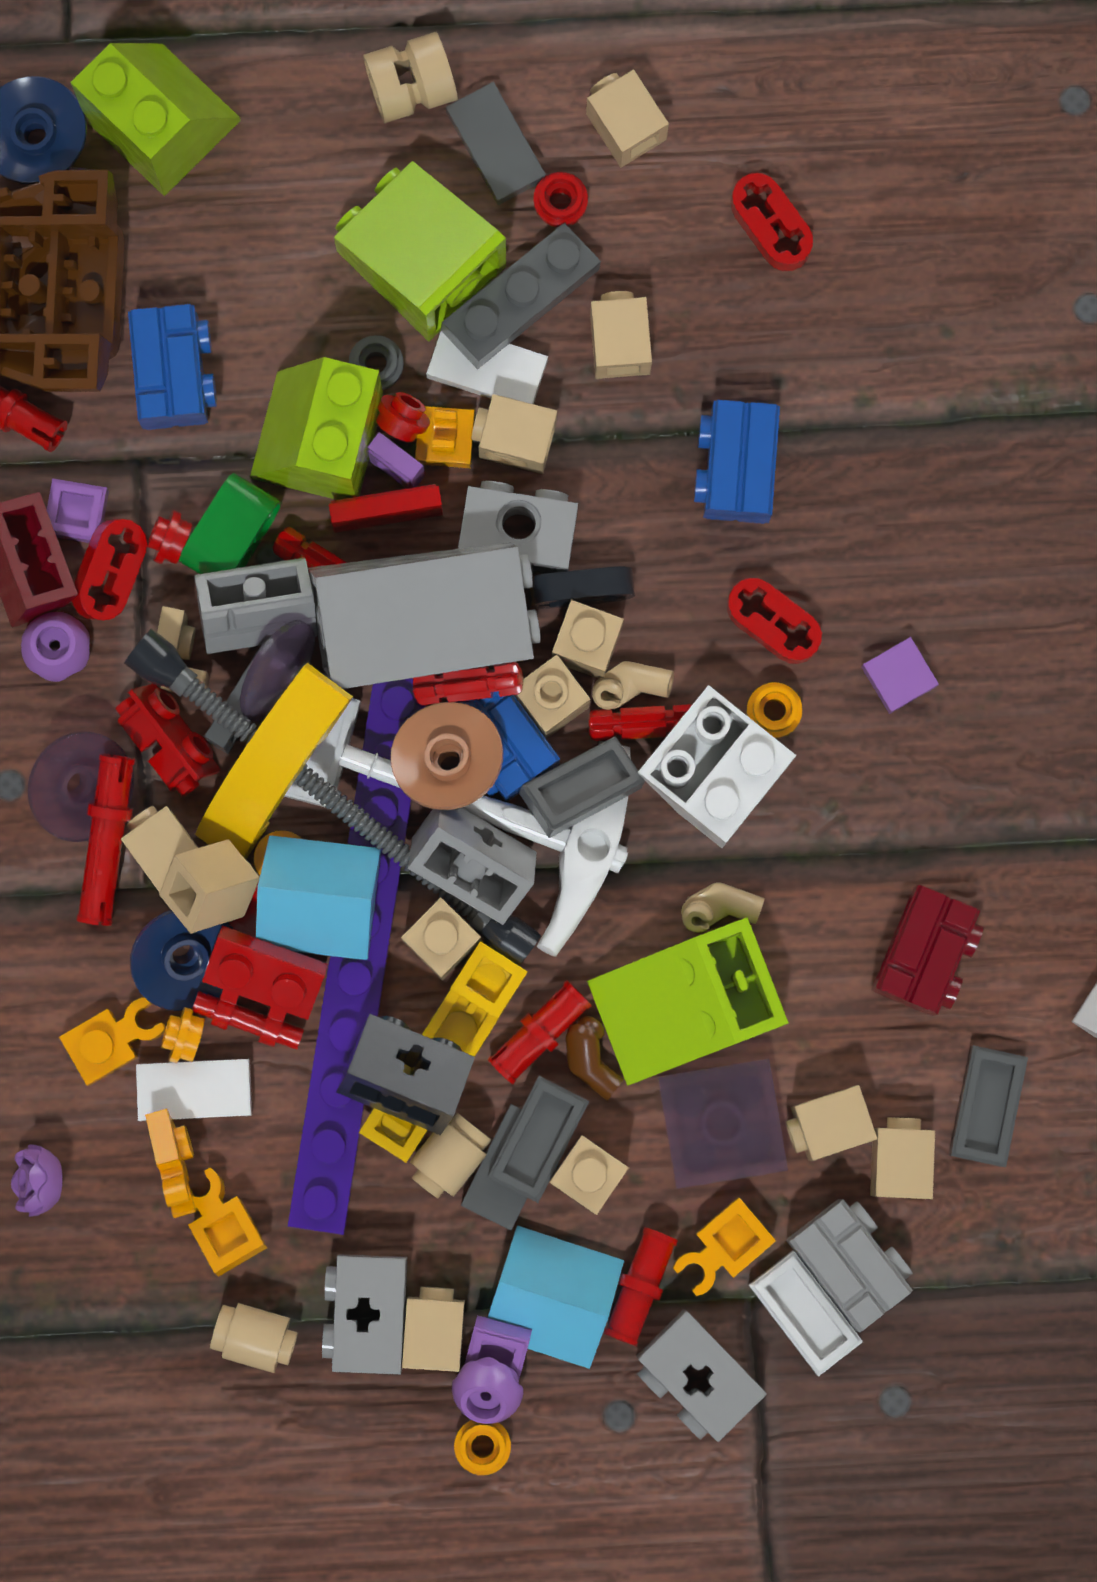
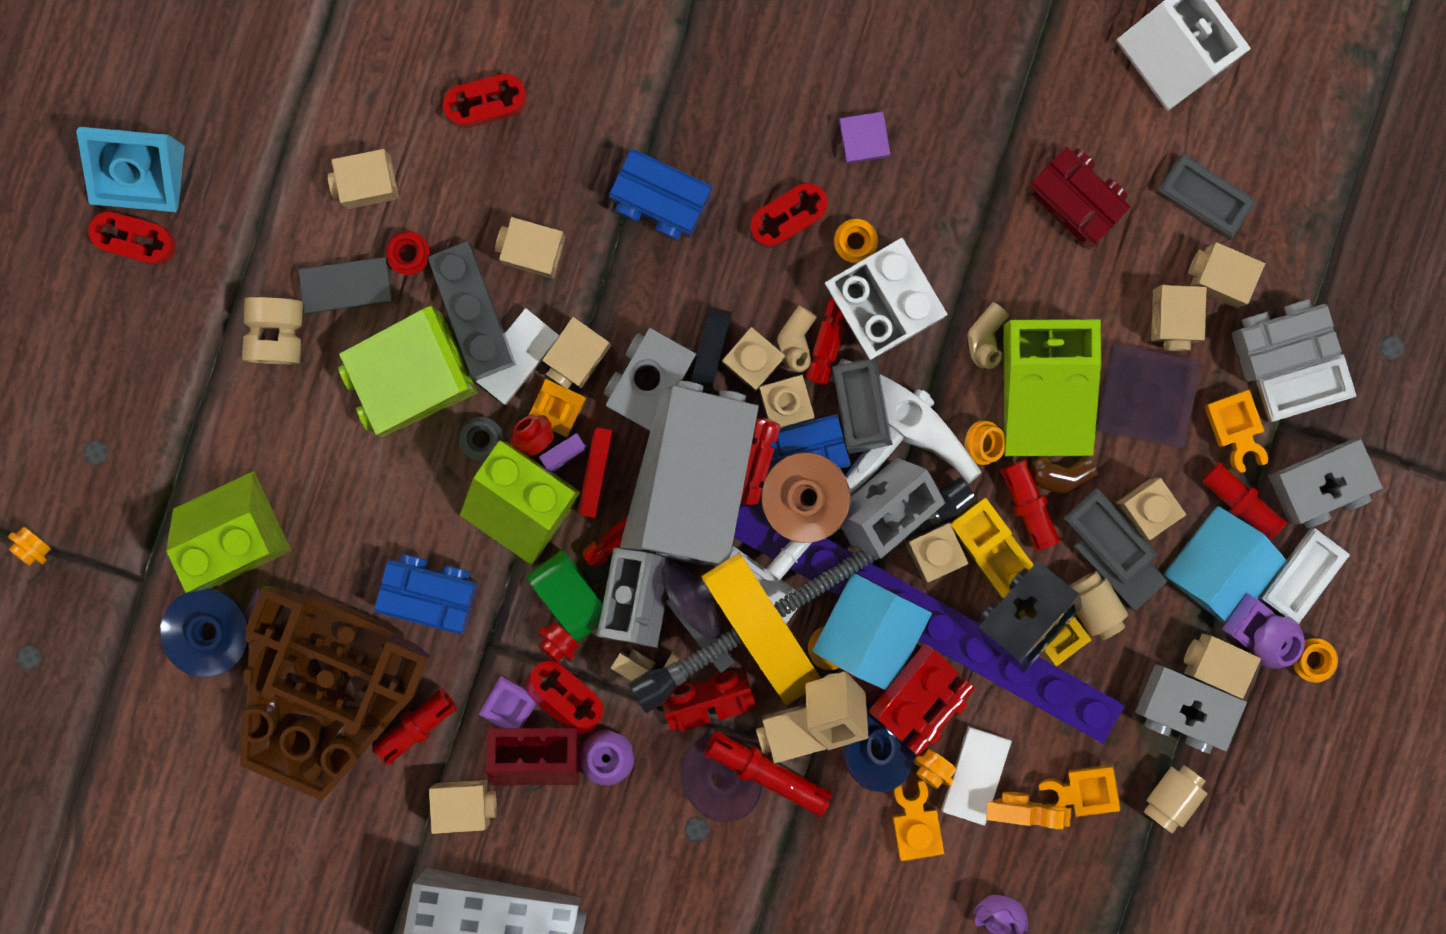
camera: 65 degrees left, 5 degrees up
(579, 1396) = (1304, 575): none -> white tile
(596, 961) = (985, 442): none -> light orange plate

